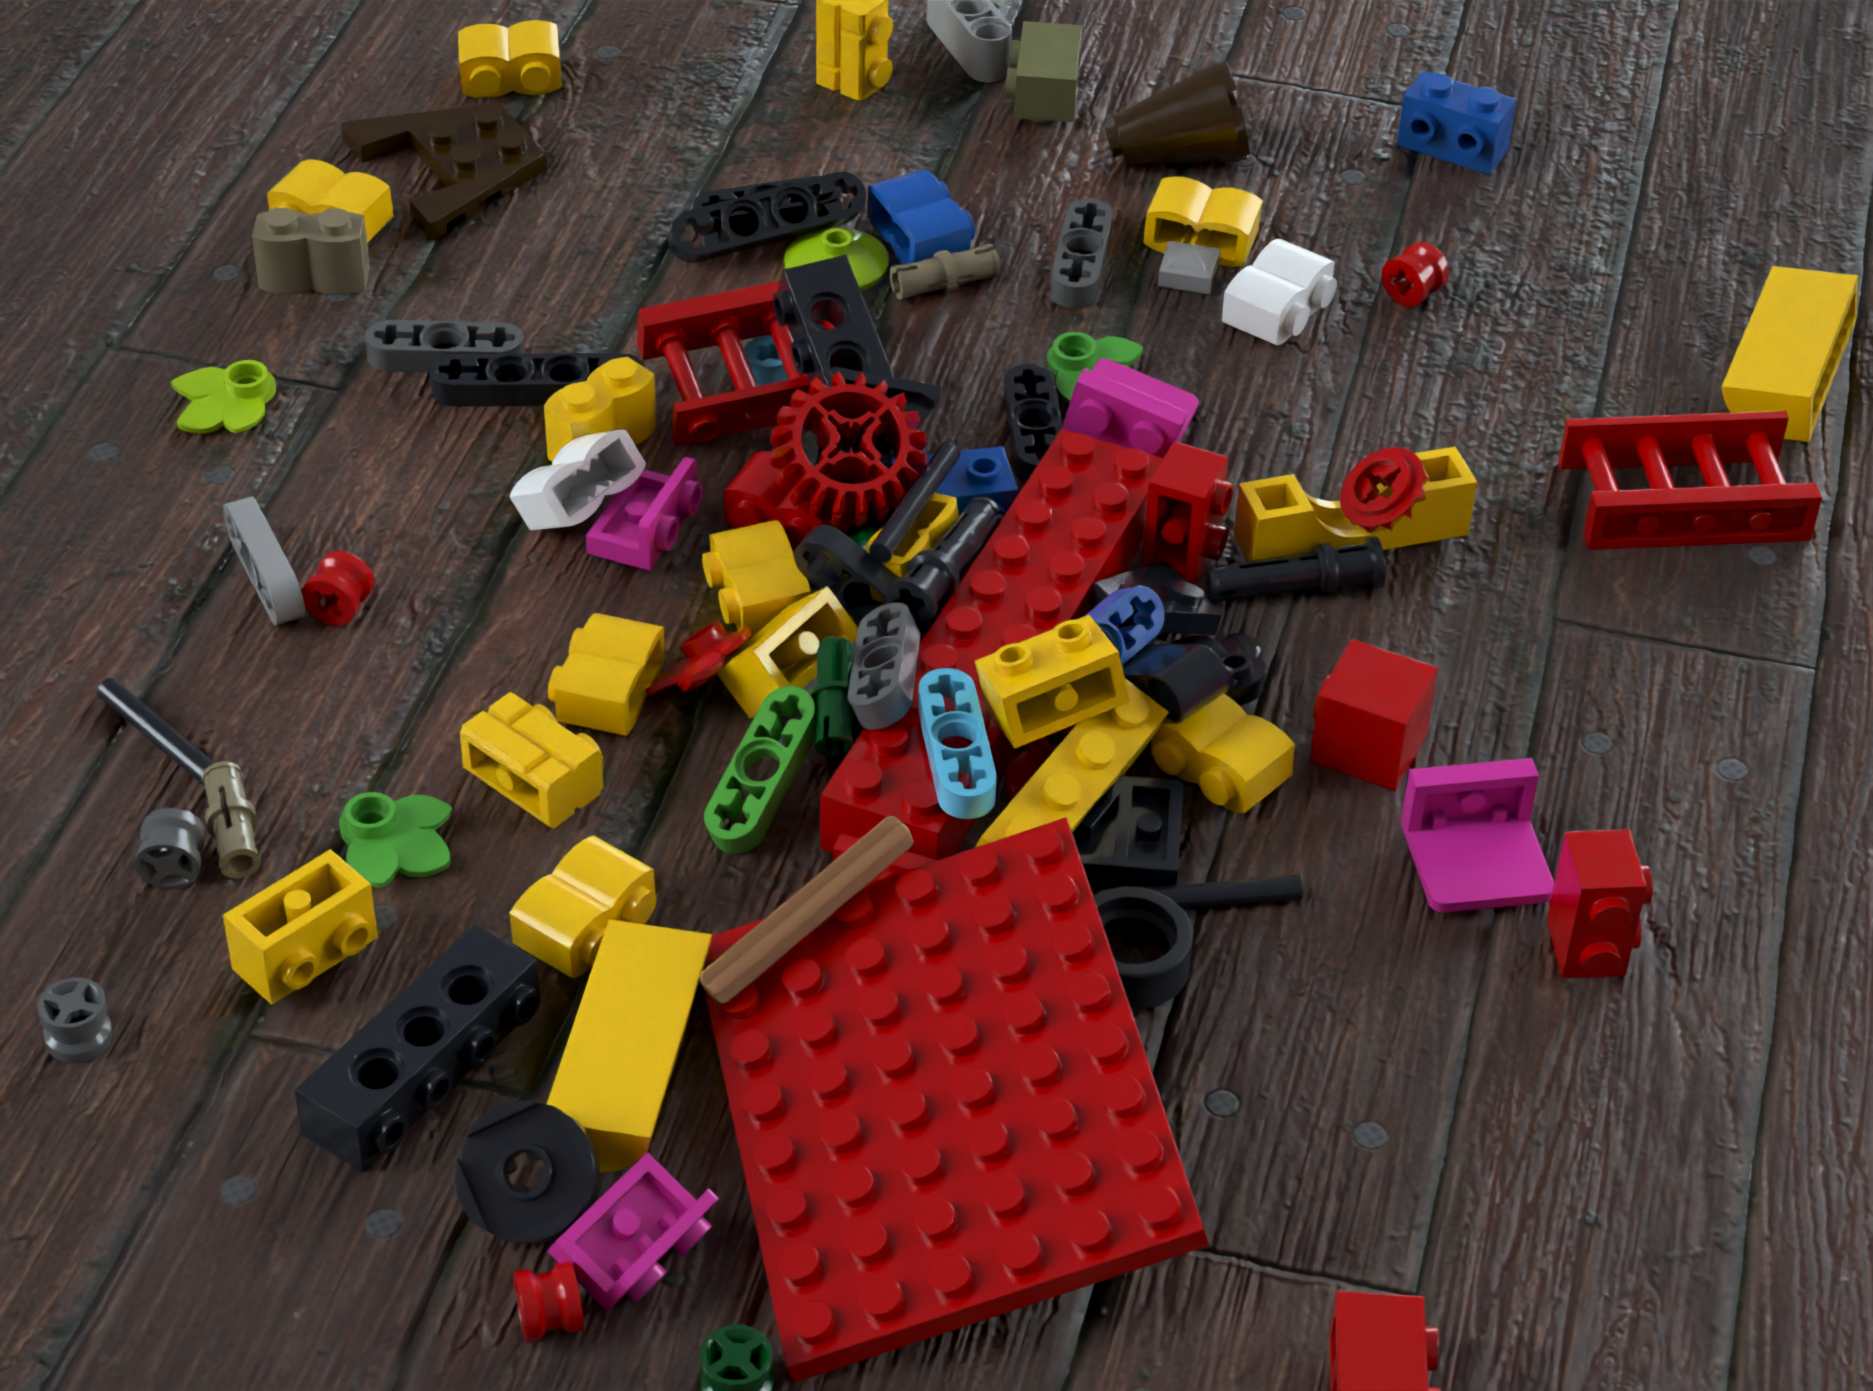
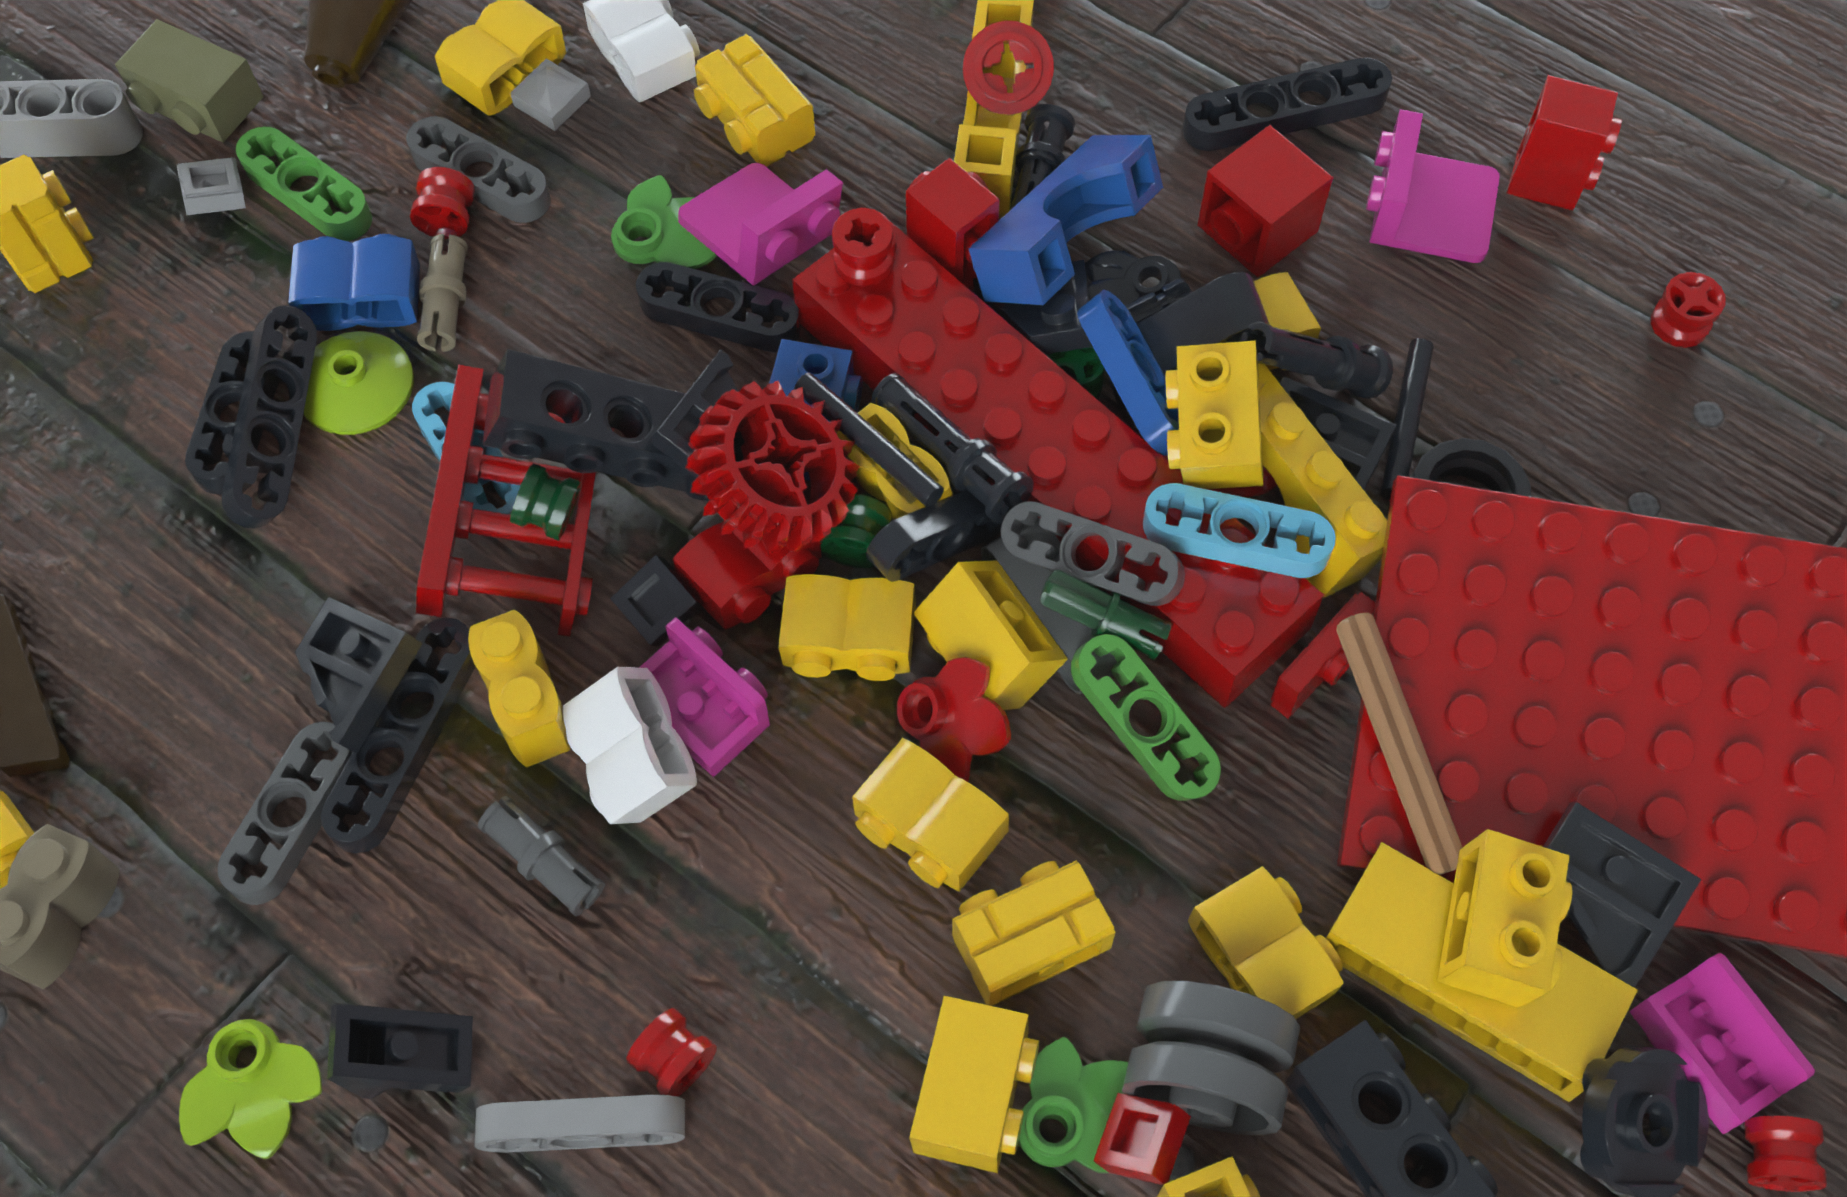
camera: 65 degrees left, 20 degrees up
(275, 442) = (398, 1049): none -> black slope
(375, 855) = (1142, 1138): none -> red plate
(380, 748) = (972, 1085): none -> yellow brick
(454, 867) = (1213, 1056): none -> dark grey wheel
(469, 477) = (541, 855): none -> dark grey pin
(576, 326) = (354, 668): none -> black wing
(659, 999) = (1505, 919): none -> yellow brick
(721, 462) = (655, 599): none -> black plate
(742, 1102) = (1620, 891): none -> black wing
(755, 355) = (545, 502): none -> dark green wheel
(963, 122) = (210, 186): none -> light grey tile
(1003, 183) = (308, 204): none -> bright green beam
(1027, 238) = (442, 202): none -> red wheel
(1102, 439) = (852, 259): none -> red wheel
(1206, 794) = (1332, 362): none -> black pin
(1214, 559) = (1027, 251): none -> blue arch
(1259, 374) = (754, 101): none -> yellow brick
(1475, 1073) = (1685, 294): none -> red wheel
(1582, 766) = (1283, 96): none -> black beam

